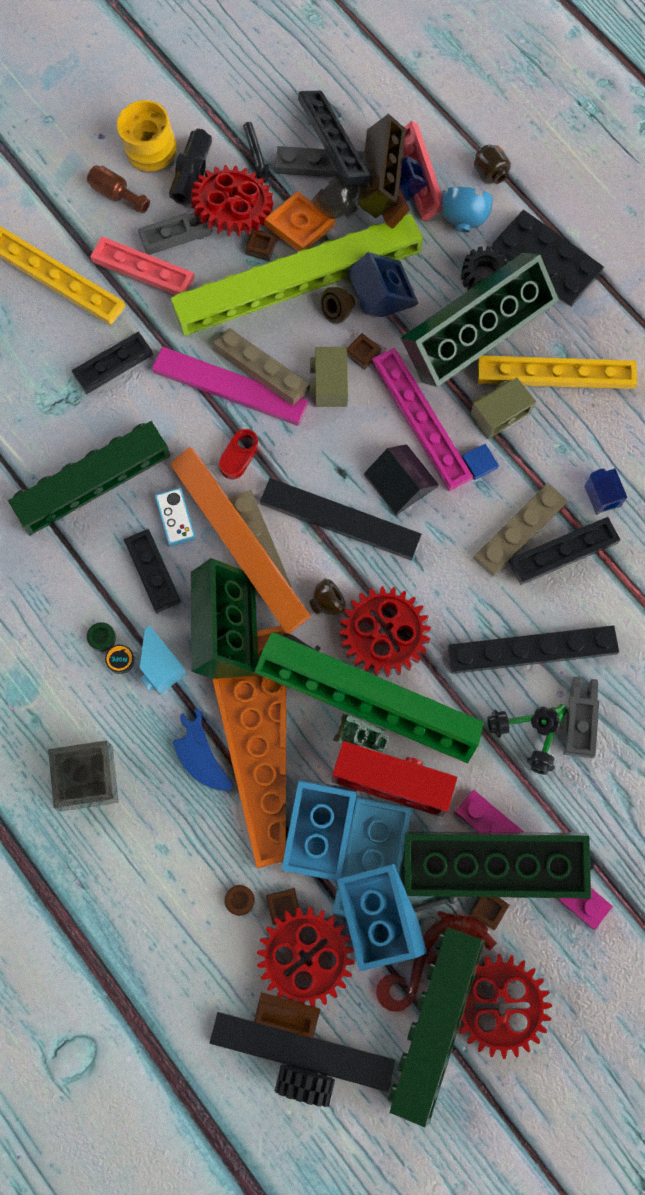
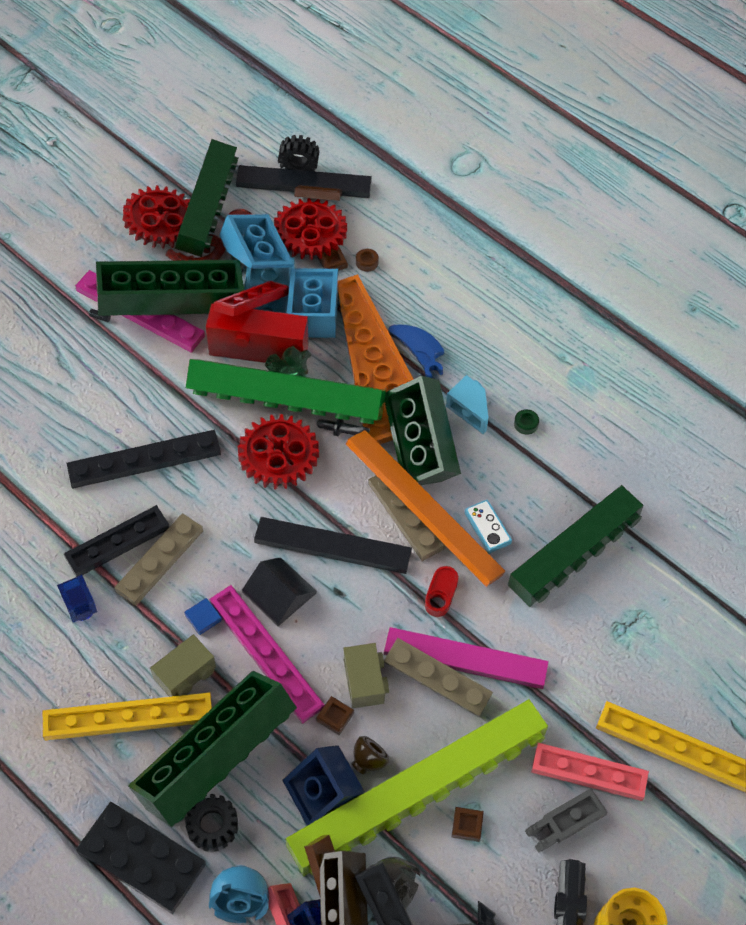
camera: 170 degrees right, 15 degrees down
(83, 776) = (508, 312): clear smoke brick -> none
(112, 362) = (590, 666): black tile -> none
(114, 187) = (650, 864): copper piece -> none
(120, 659) = (505, 406): black tile -> none
(152, 571) = (497, 479): black tile -> none
(231, 200) = (507, 891): red gear -> none
(298, 222) = (433, 852): orange plate -> none
(327, 598) = (332, 470): dark brown brick -> none
(397, 819) = (251, 298): none -> red tile
(544, 720) = (133, 382): black plant -> none
(582, 720) = (99, 407): dark grey hinge -> none

